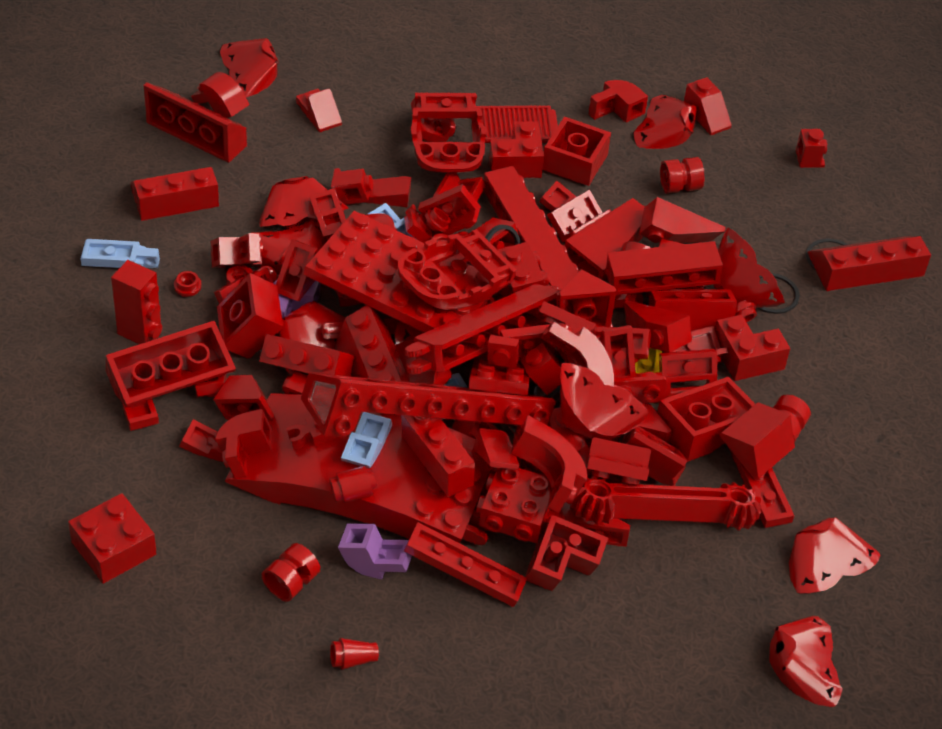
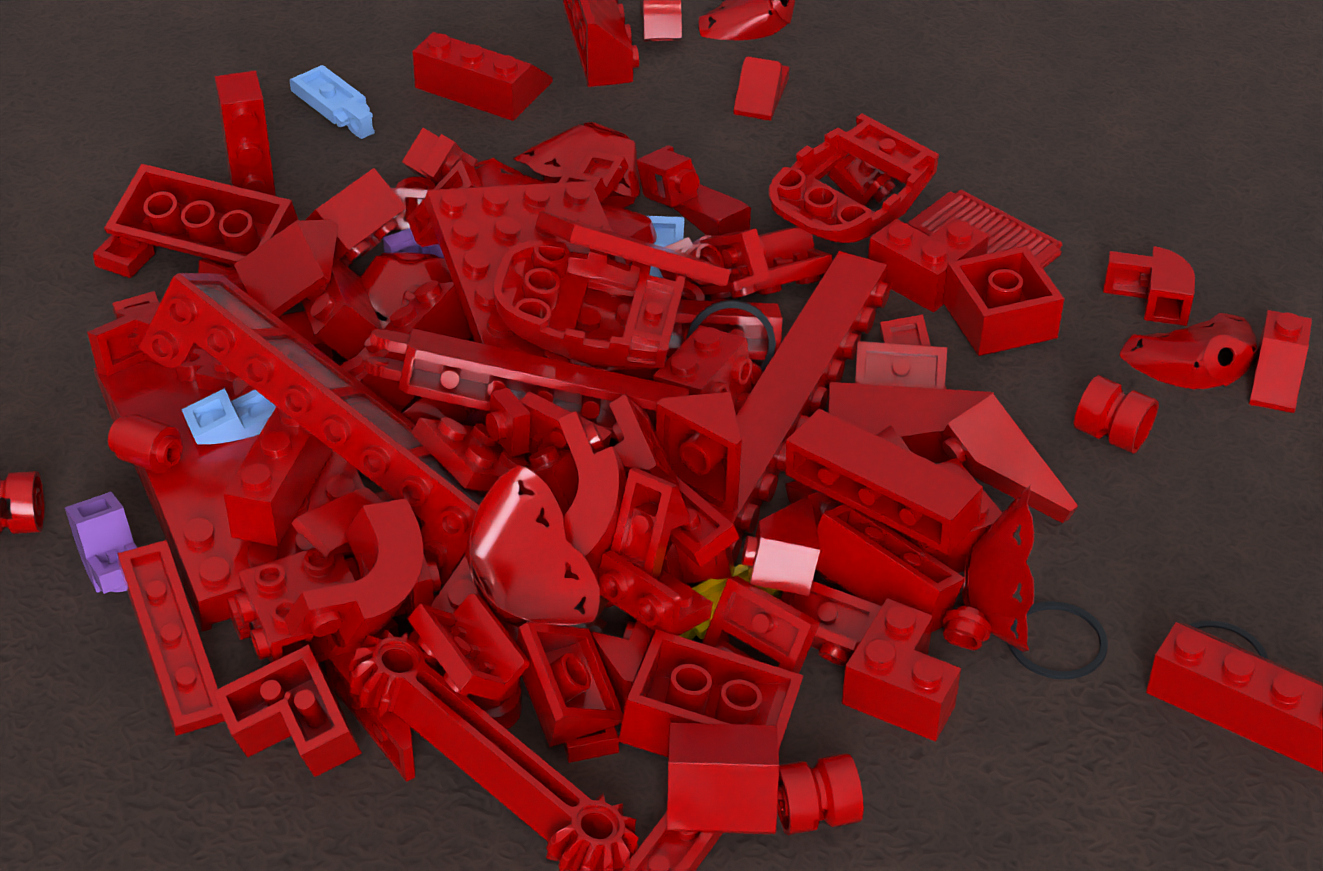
camera: 50 degrees right, 5 degrees down
(187, 283) = (356, 164): red plate -> none
(275, 354) = (290, 265): none -> red slope
(436, 231) = (632, 249): none -> red tile

